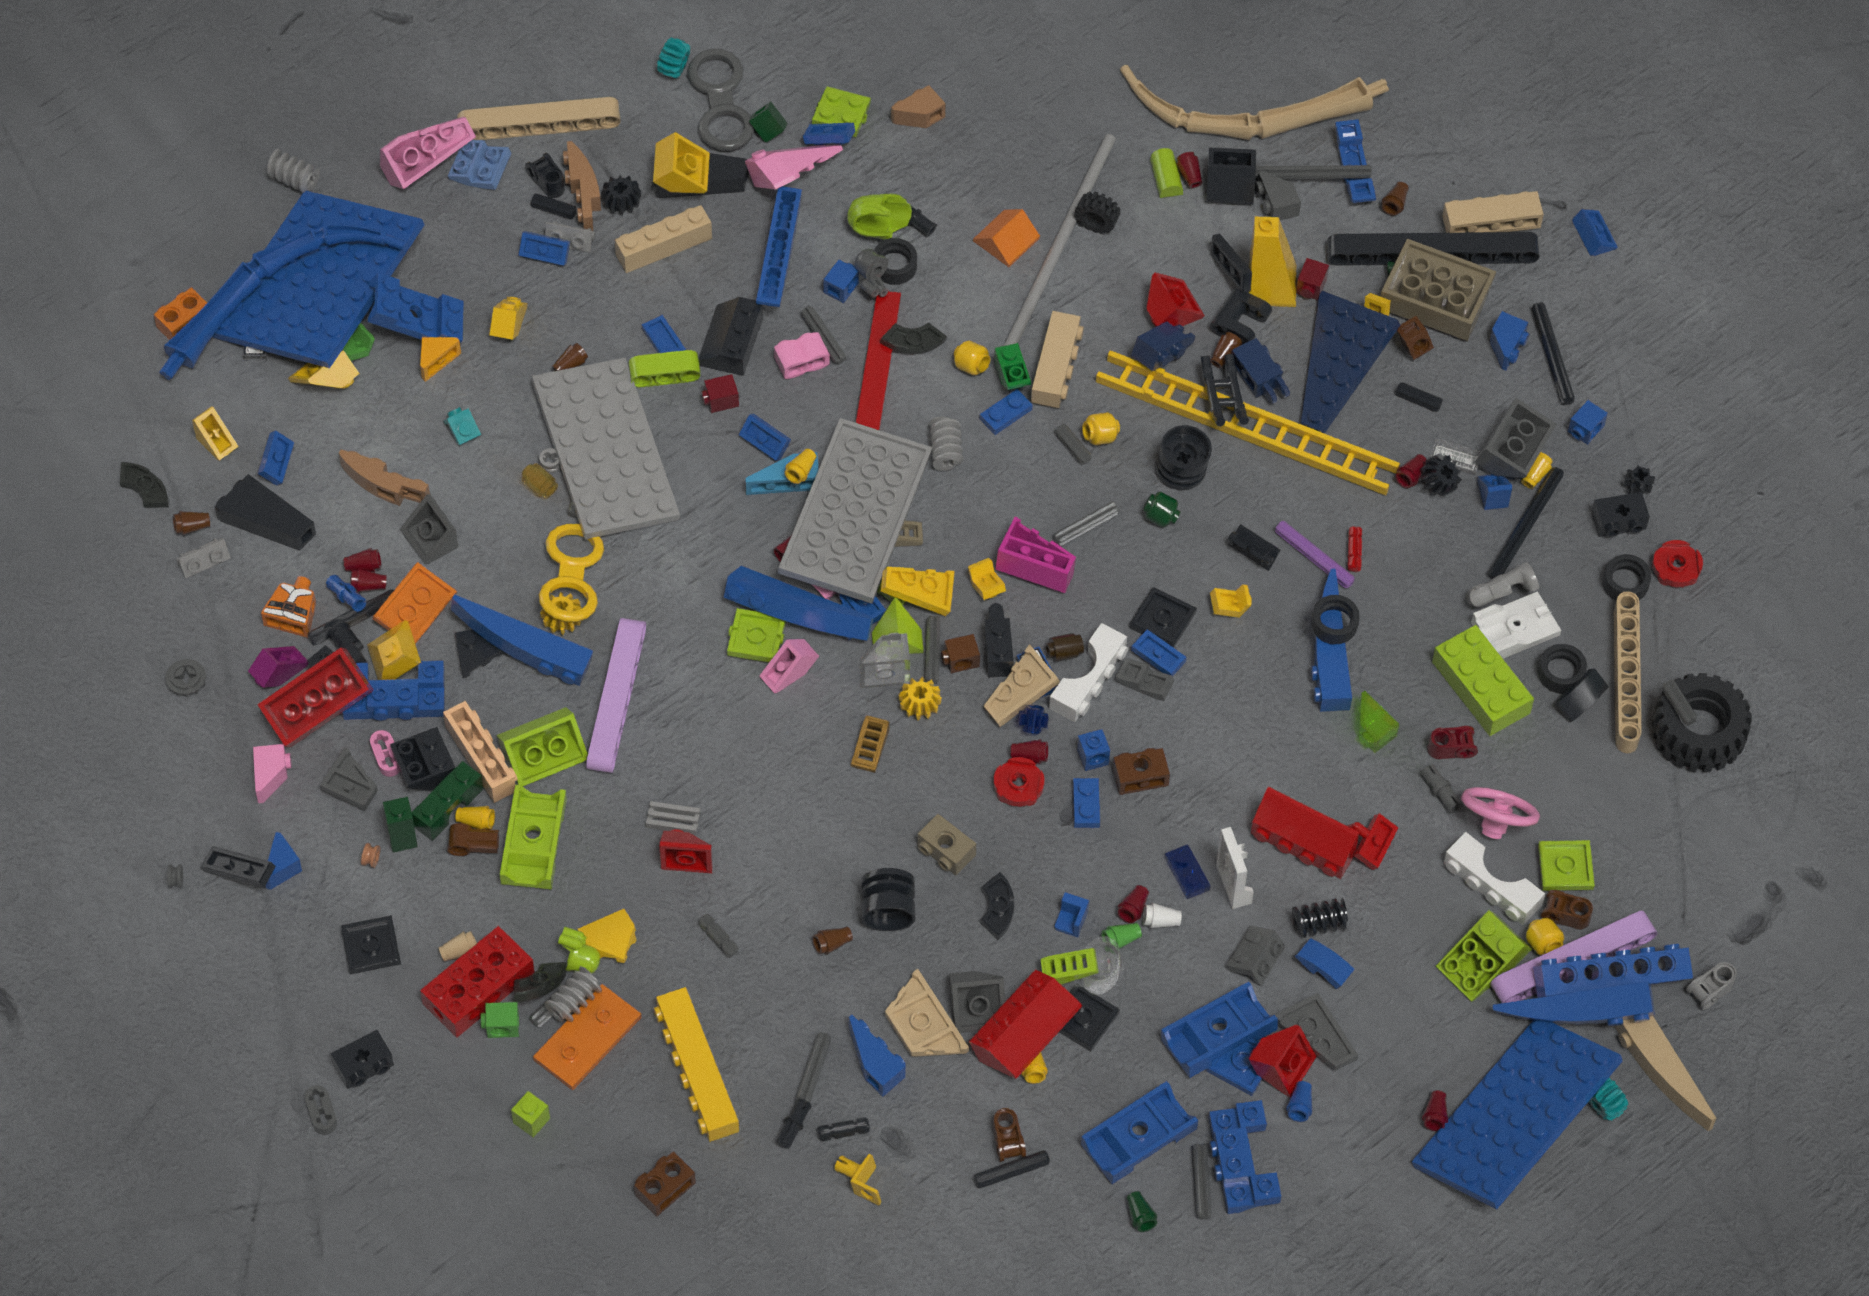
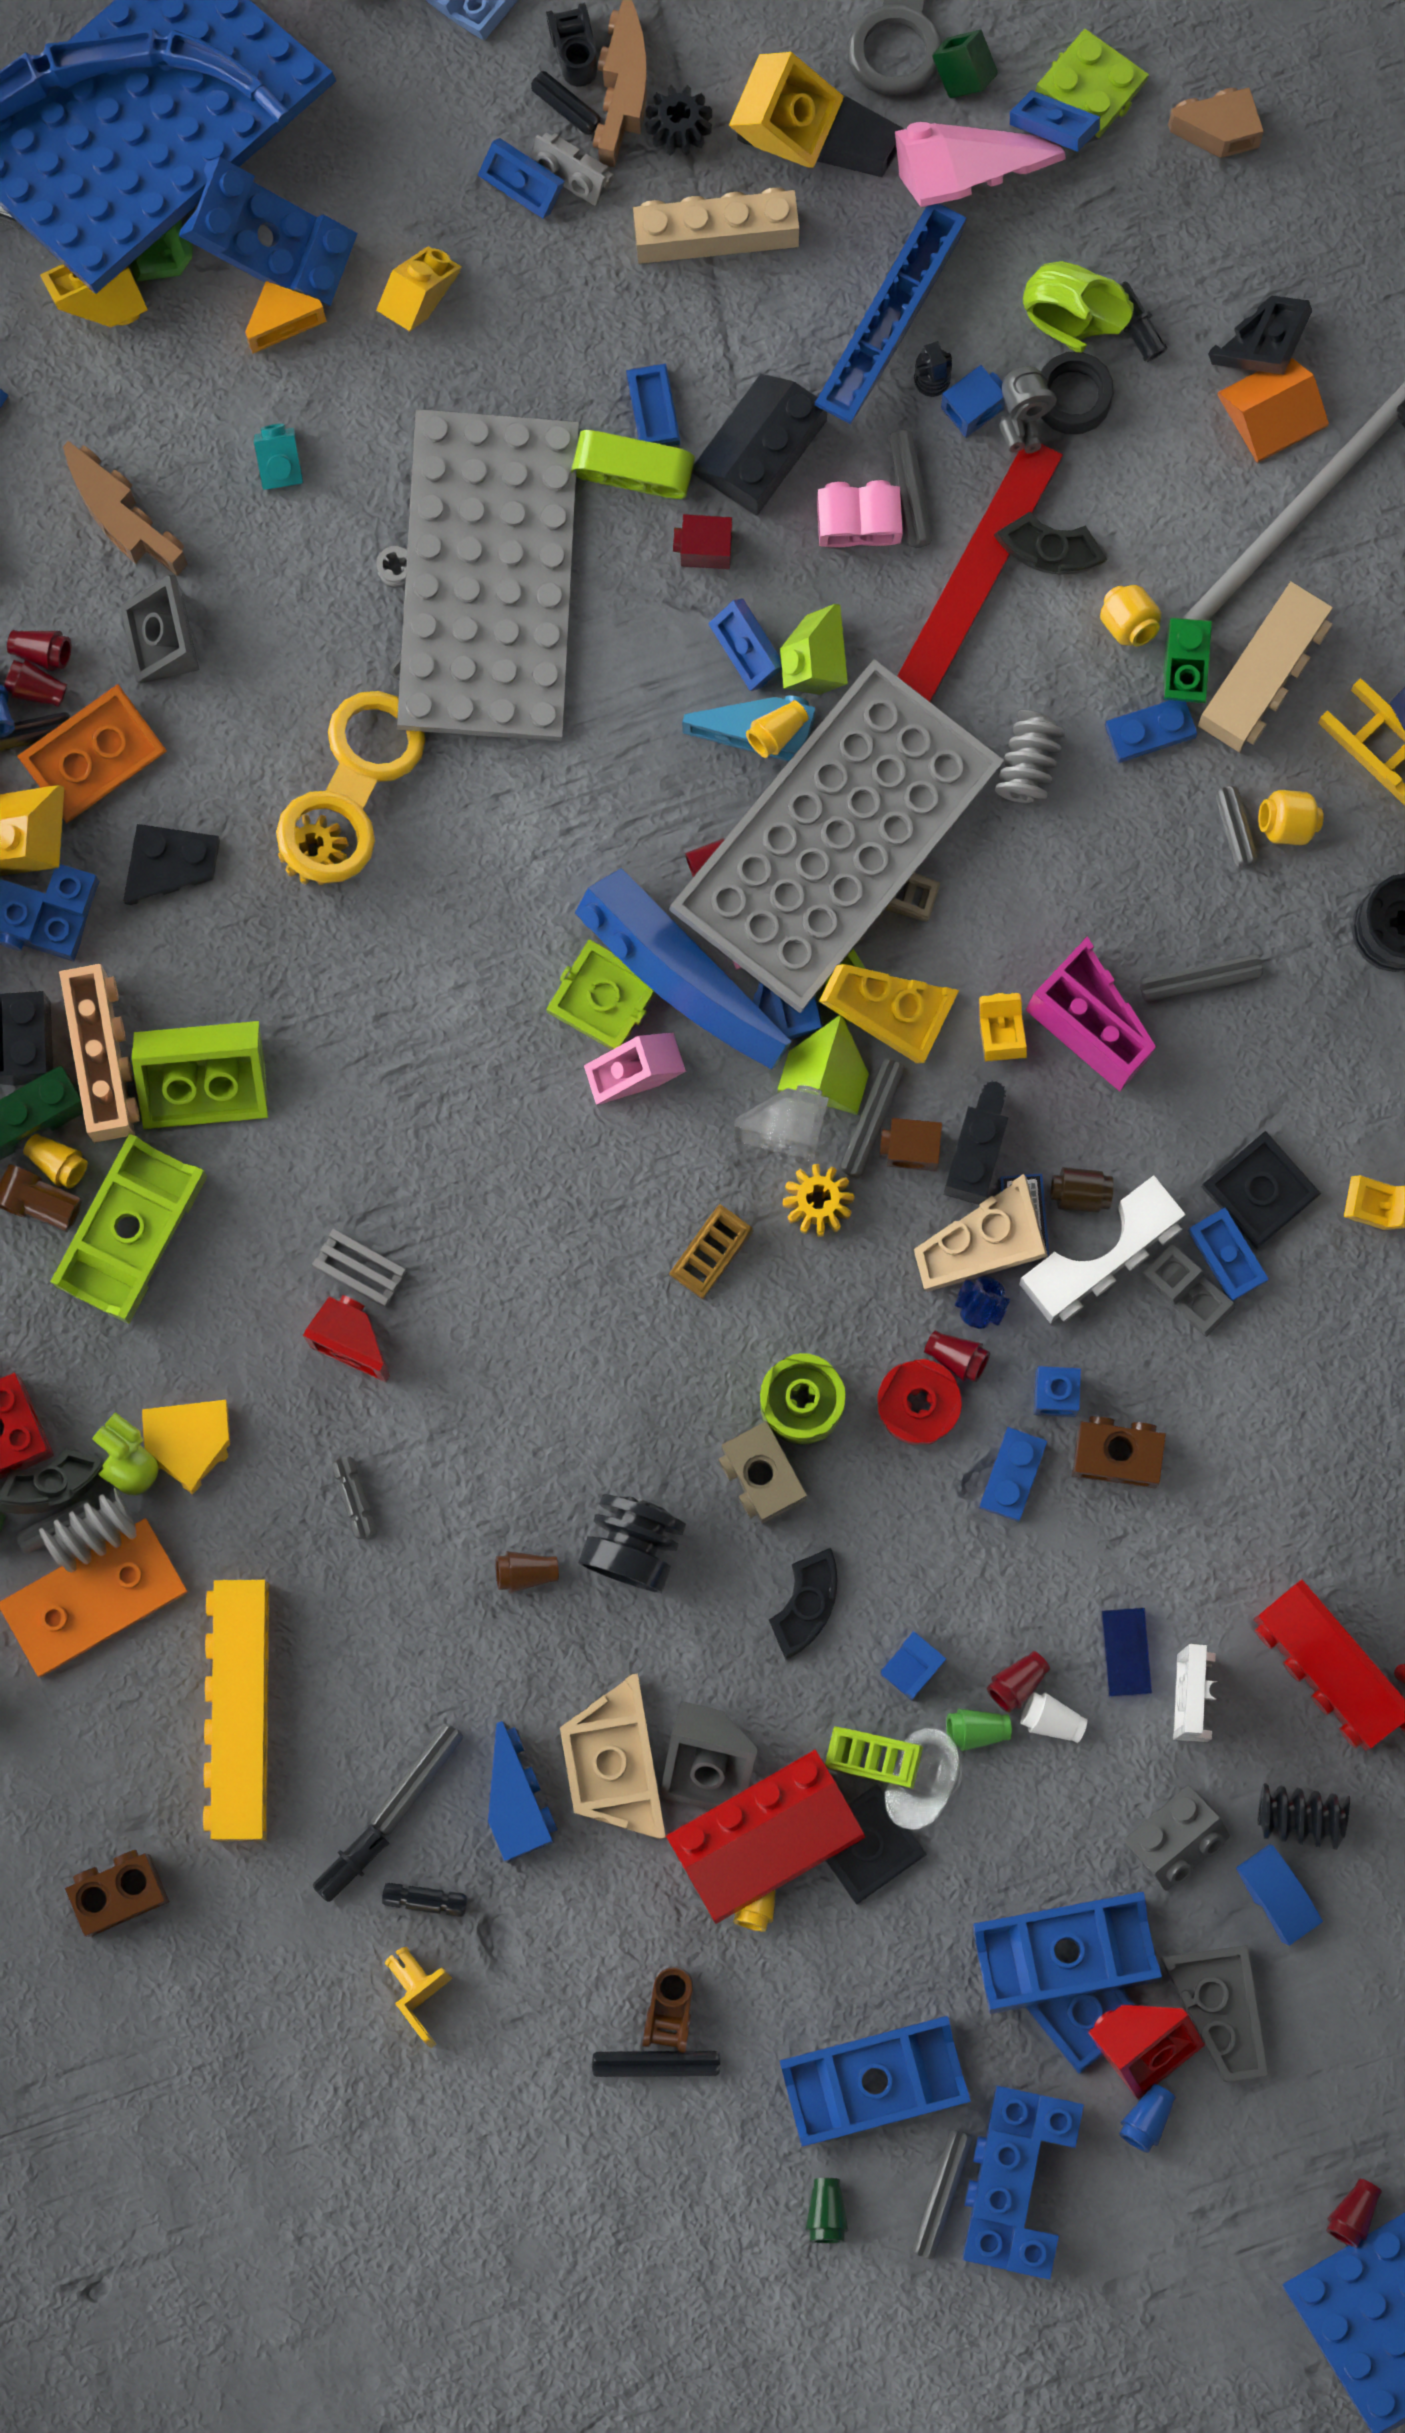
camera: 25 degrees right, 20 degrees up
(525, 642) = (246, 899): blue slope -> none
(539, 480) = (363, 599): clear yellow brick -> none
(572, 357) = (490, 396): reddish brown cone -> none
(616, 695) = (346, 1024): lavender beam -> none
(806, 428) = (815, 653): none -> lime slope
(812, 271) = (933, 370): none -> black hinge
(954, 796) = (786, 1380): none -> lime brick
(988, 203) = (1266, 338): none -> black wing
(1161, 509) = (1331, 998): dark green head -> none

